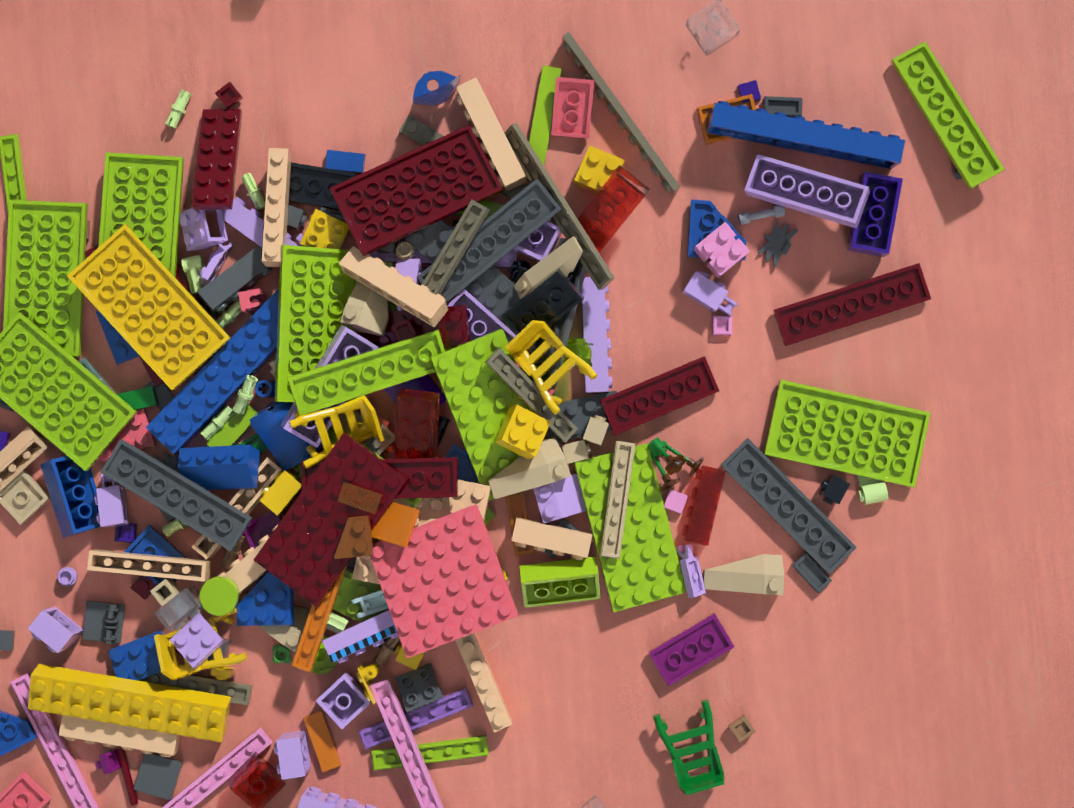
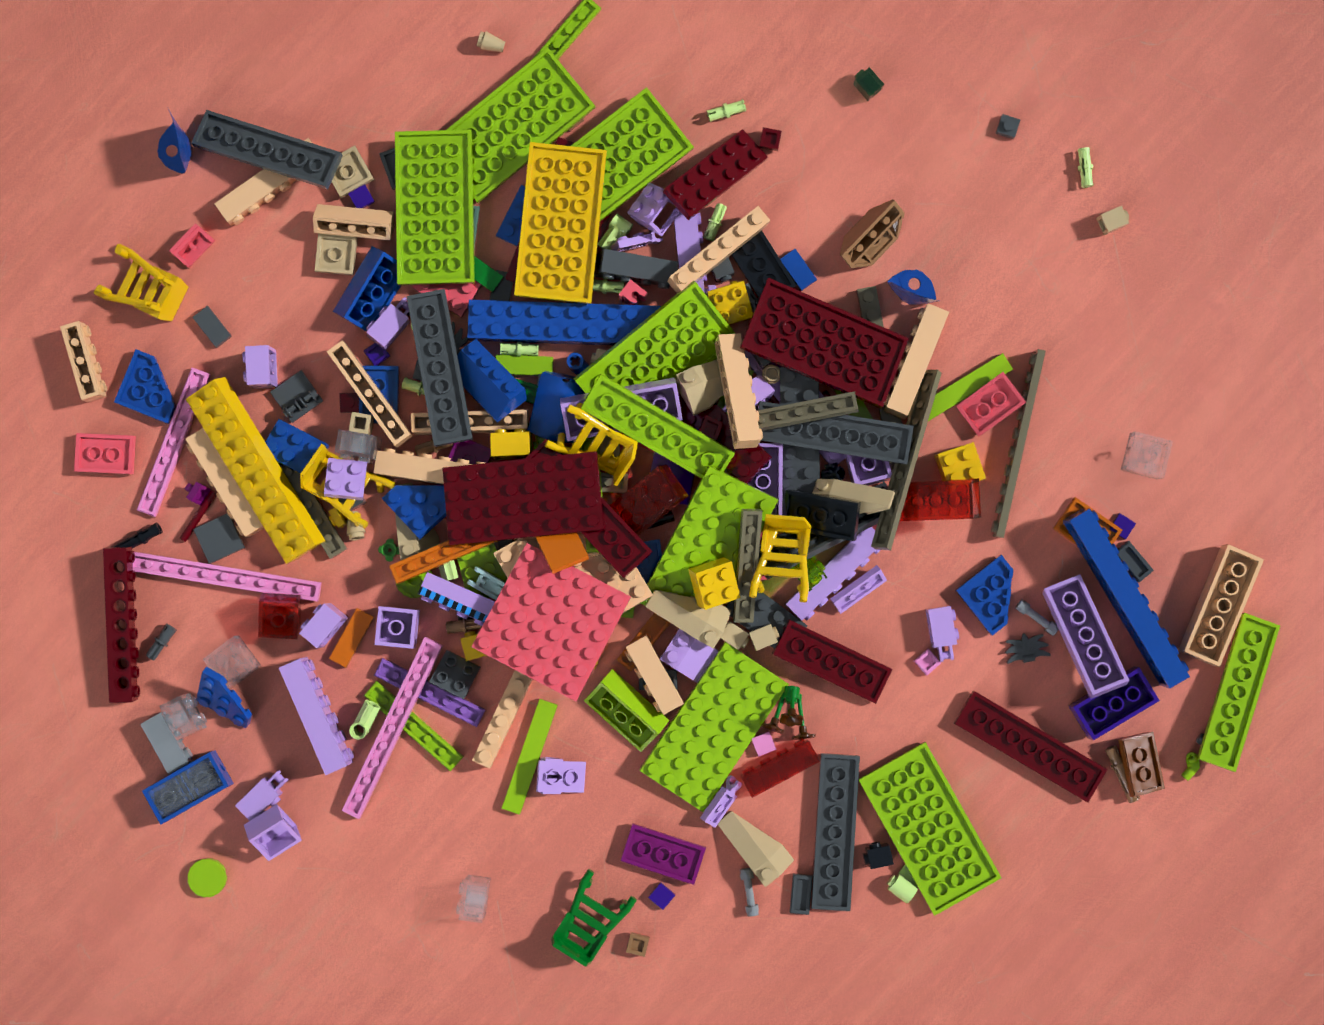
camera: 50 degrees right, 0 degrees up
(67, 576) = (306, 339): lavender plate -> none
(219, 596) = (393, 465): lime tile -> none
(245, 394) = (558, 351): yellowish green pin -> none
(245, 668) = (354, 532): none -> tan cone
(356, 538) = (526, 530): dark orange wing -> none
(360, 497) = (559, 506): clear orange plate -> none
(364, 675) = (429, 626): yellow hinge -> none
(368, 83) = (872, 235): none -> medium nougat wedge
(392, 785) = (365, 719): none -> yellowish green piece
(530, 685) = (529, 756): none -> lime tile
(565, 675) = (560, 776): none -> lavender piece
(617, 499) = (726, 698): tan tile -> none
(623, 328) = (858, 589): none -> lavender plate
(721, 249) = (983, 611): bright pink piece -> none
(721, 678) = (661, 895): none -> dark purple tile
(790, 618) = (751, 908): none -> light grey bar
(871, 71) = (1220, 605): none -> light nougat brick
(925, 252) = (1117, 766): none -> medium nougat pin
(937, 234) = (1141, 764): none -> dark orange tile
(972, 198) = (1193, 766): none -> lime arm

